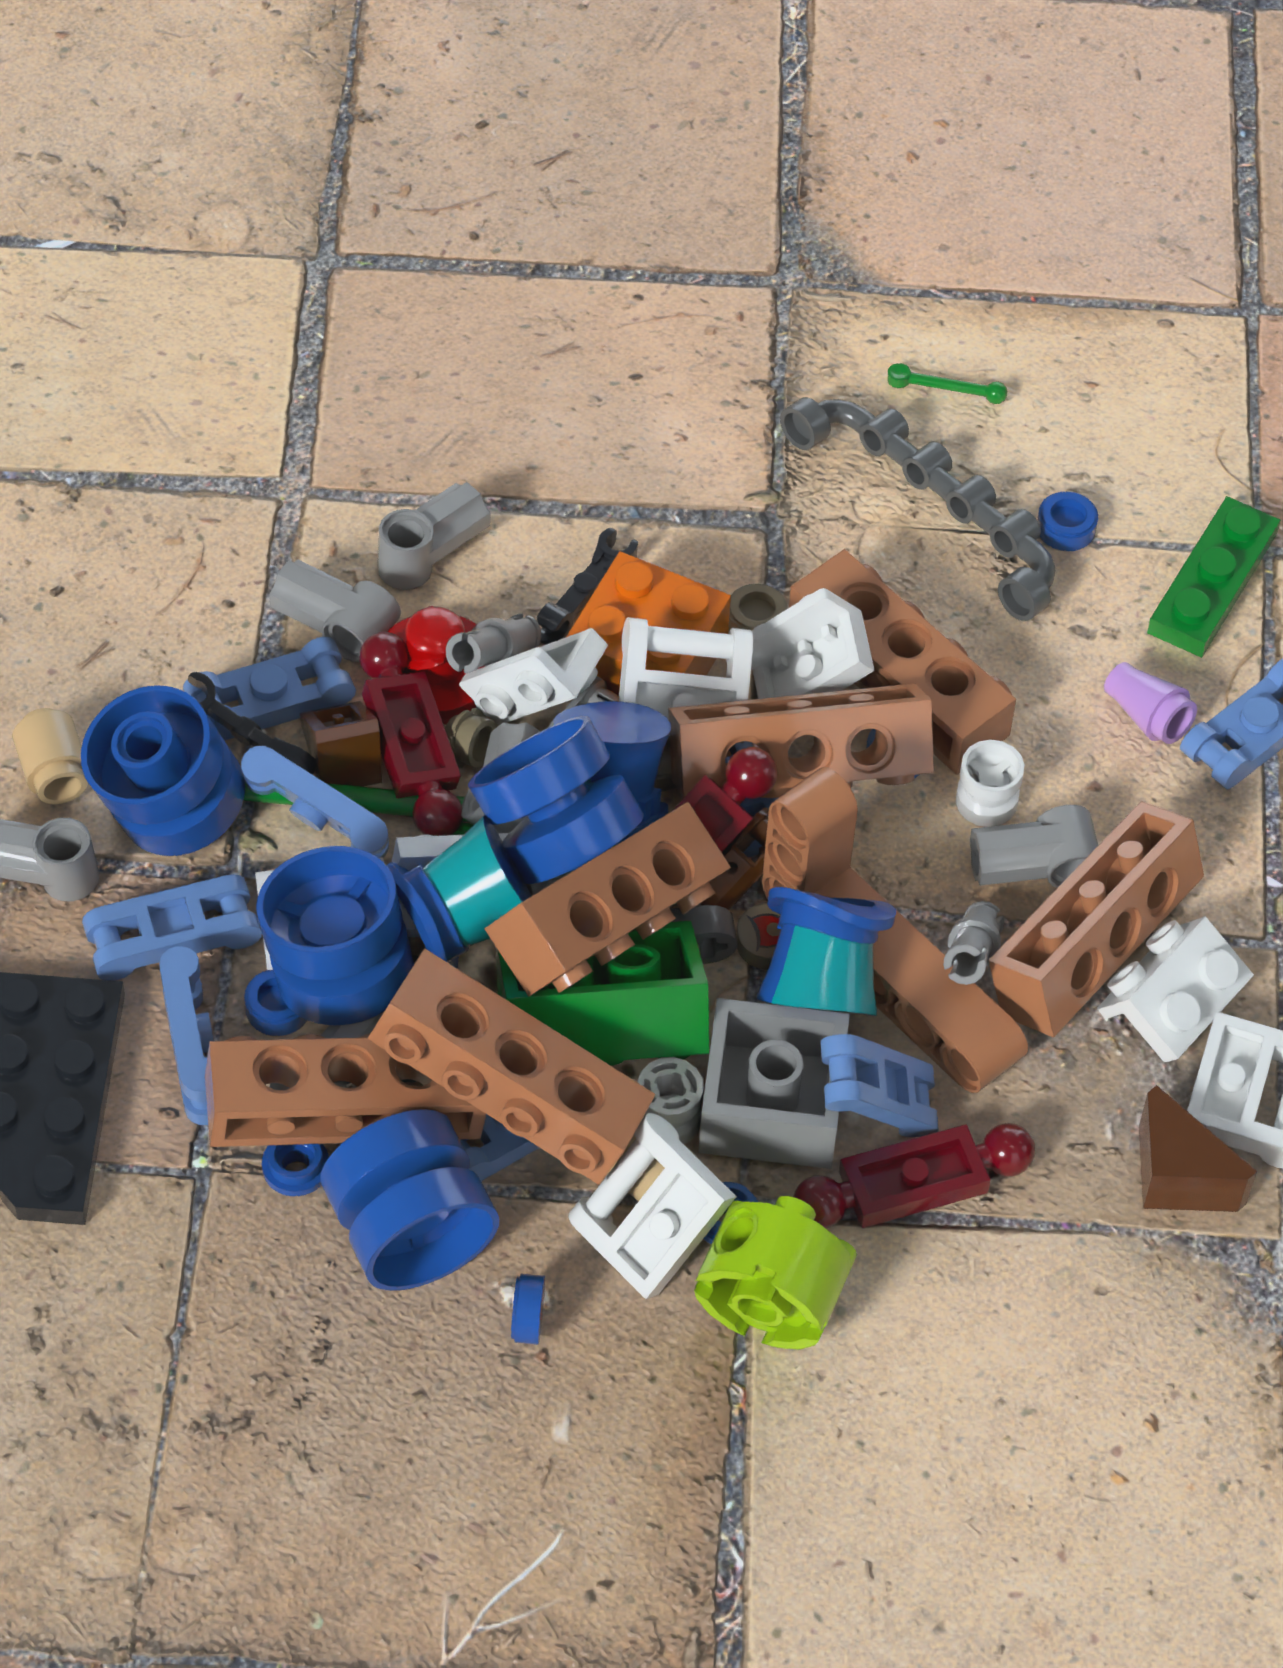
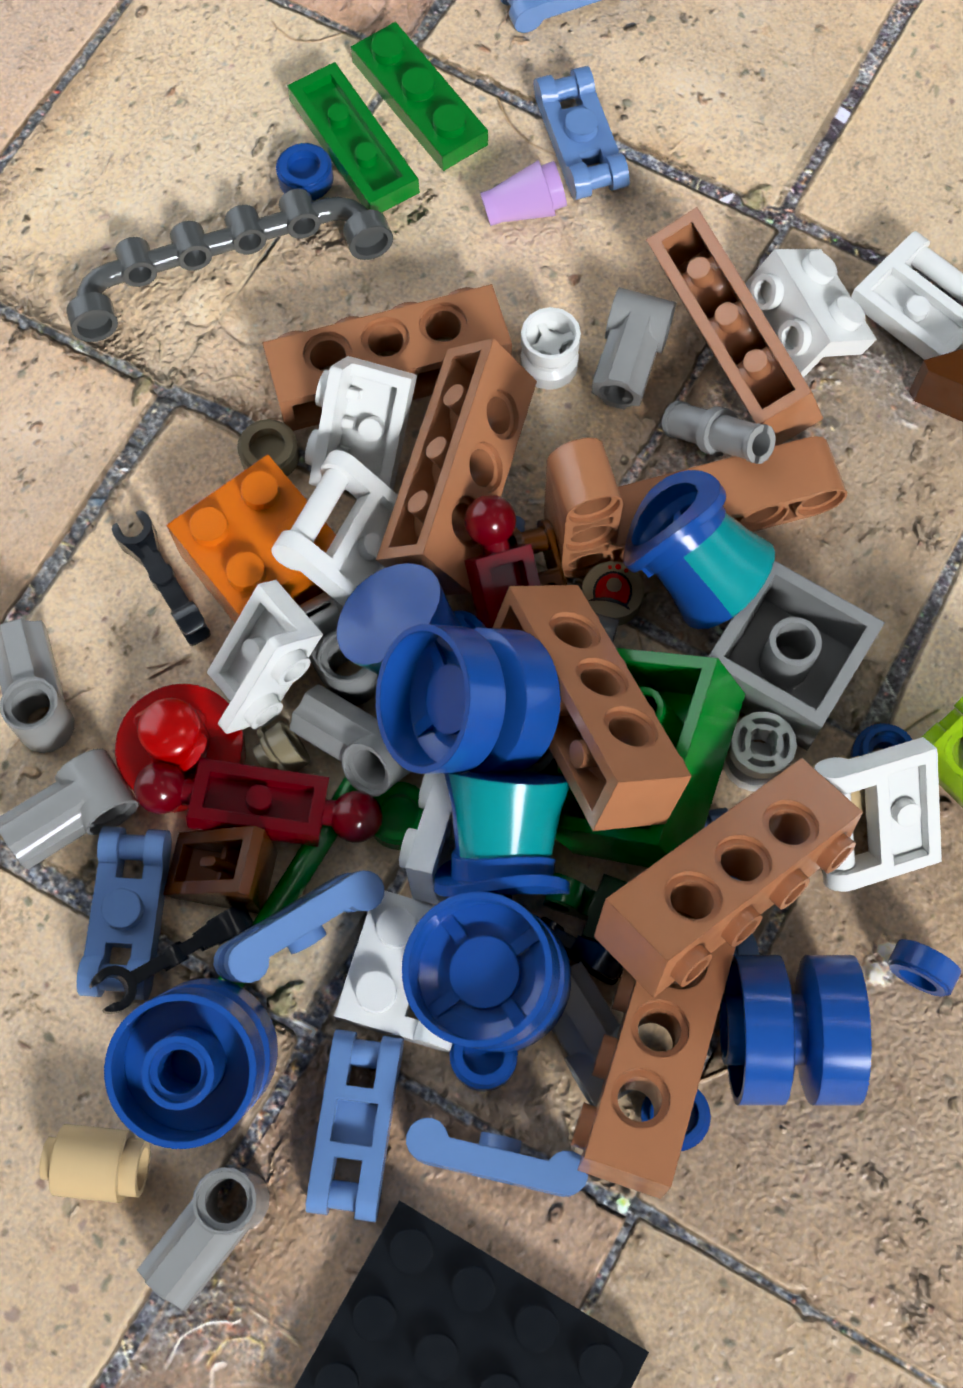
camera: 60 degrees left, 15 degrees up
(492, 642) = (202, 682): light grey pin -> none
(879, 1084) = (848, 571): medium blue plate -> none
(900, 376) = (78, 223): green hinge -> none
(917, 1174) = (910, 589): dark red plate -> none
(1122, 540) = (353, 139): none -> green plate

